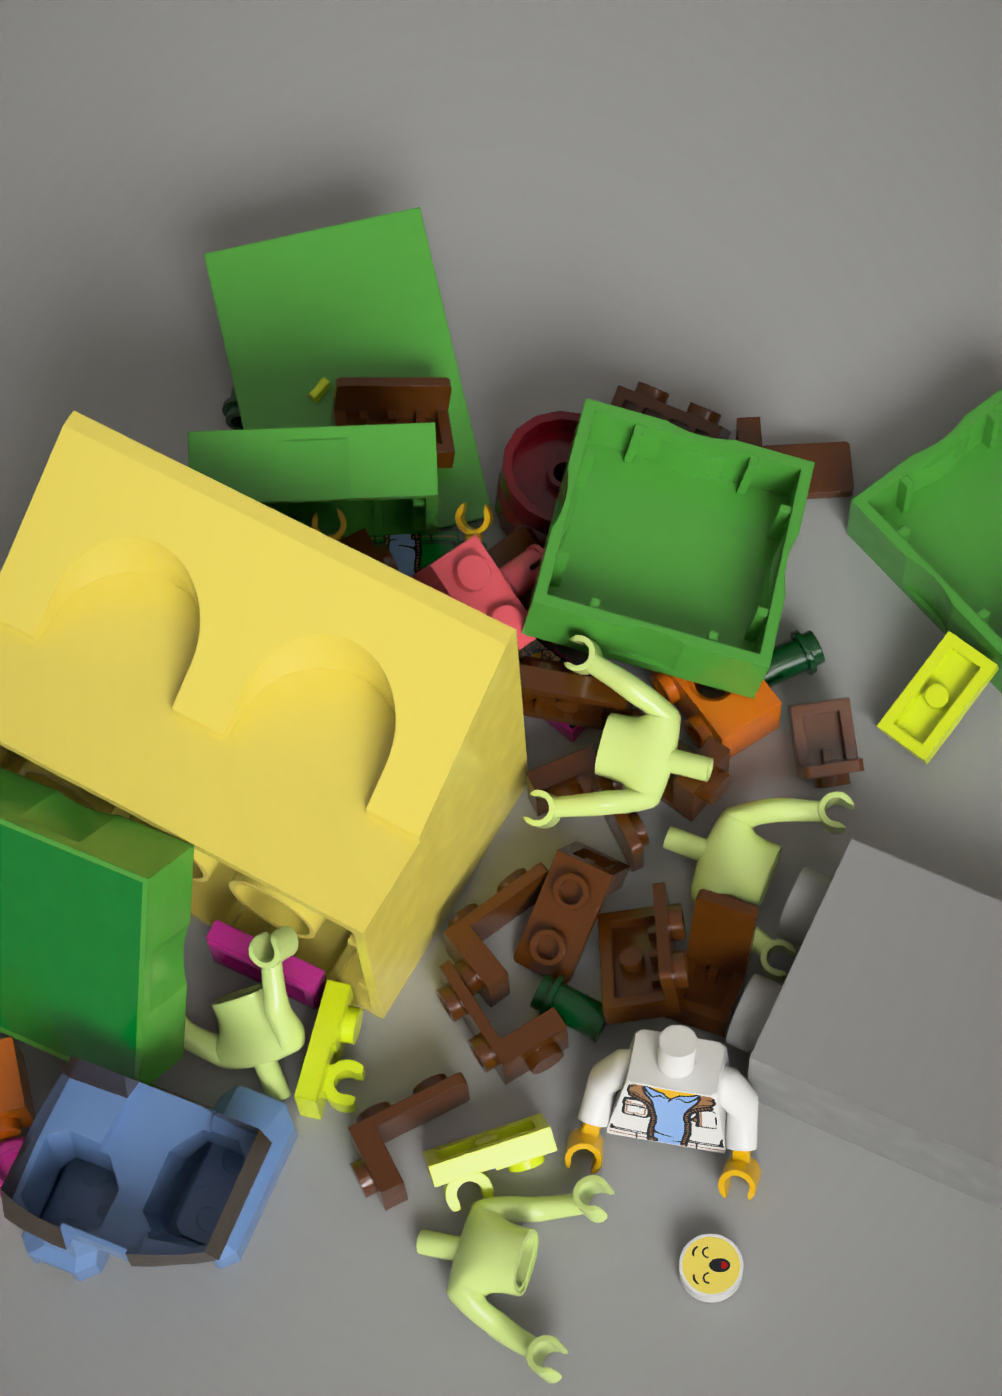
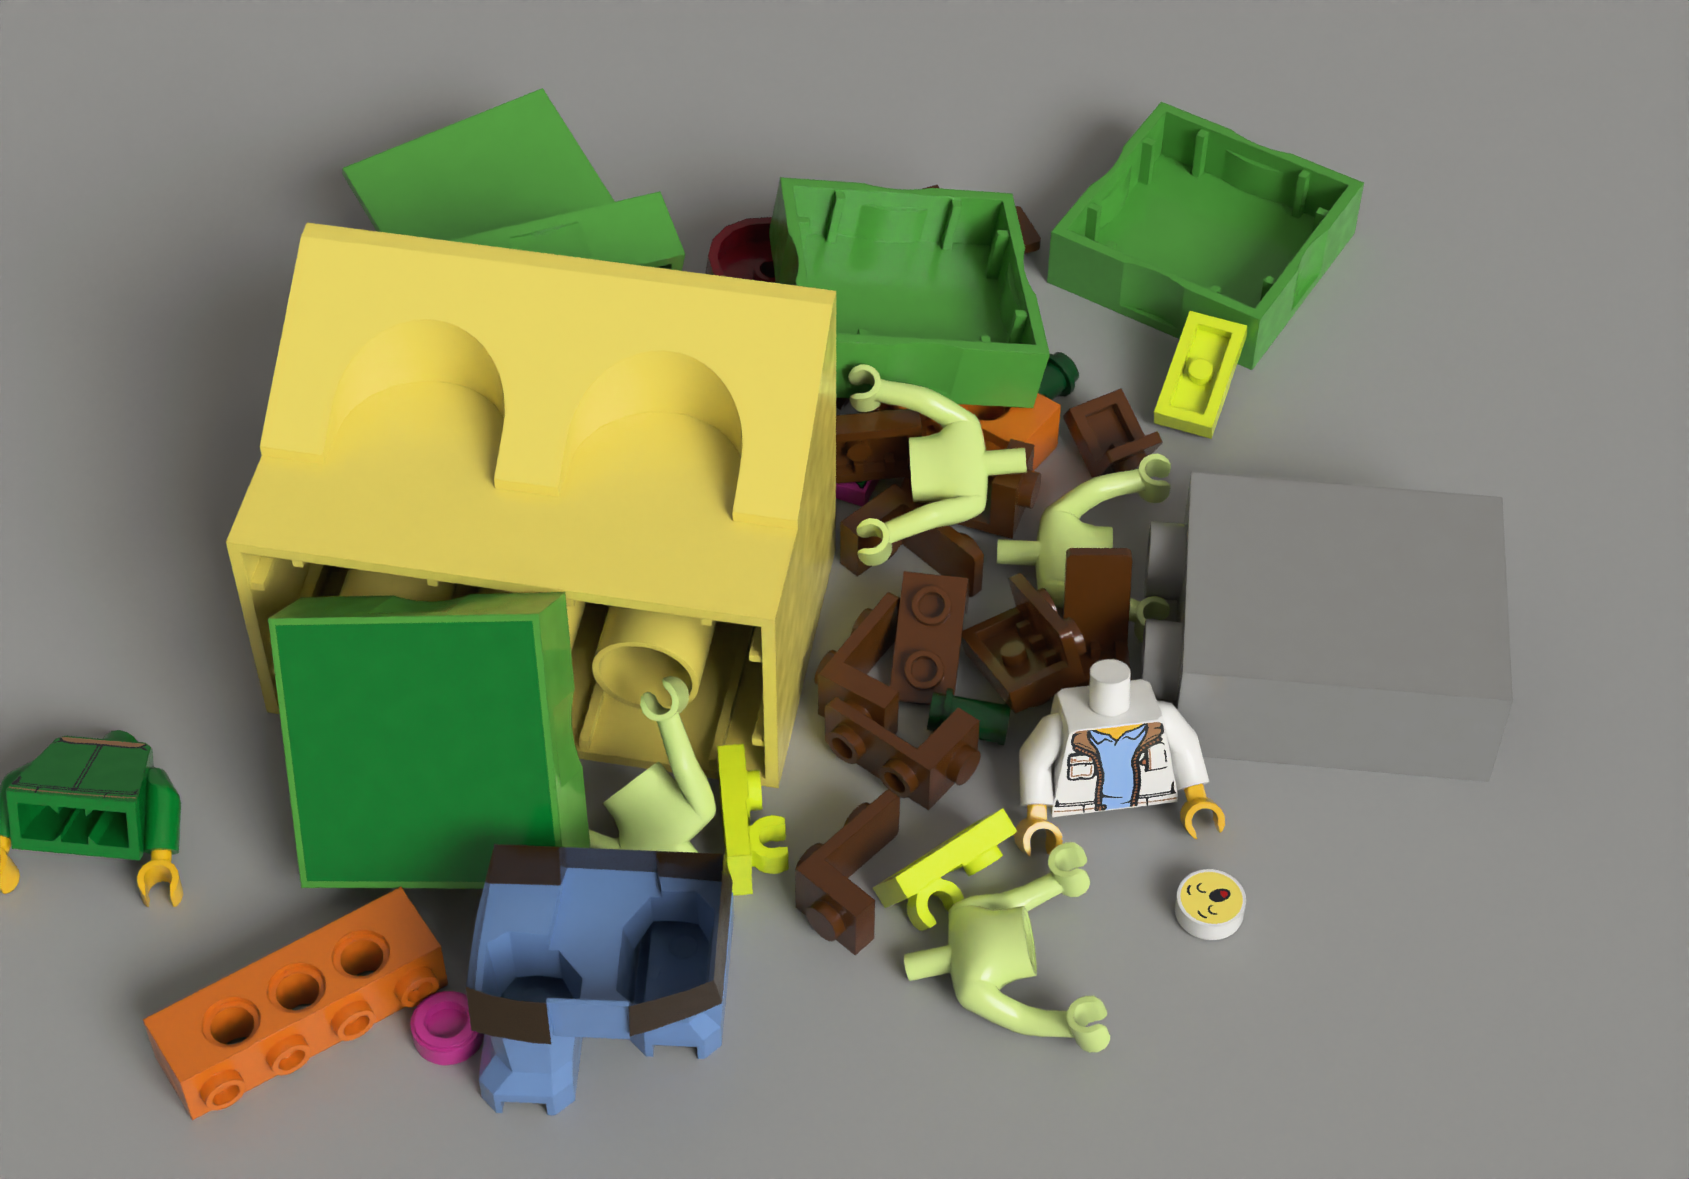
camera: 25 degrees left, 15 degrees down
(231, 949) = (618, 756): dark pink tile -> none

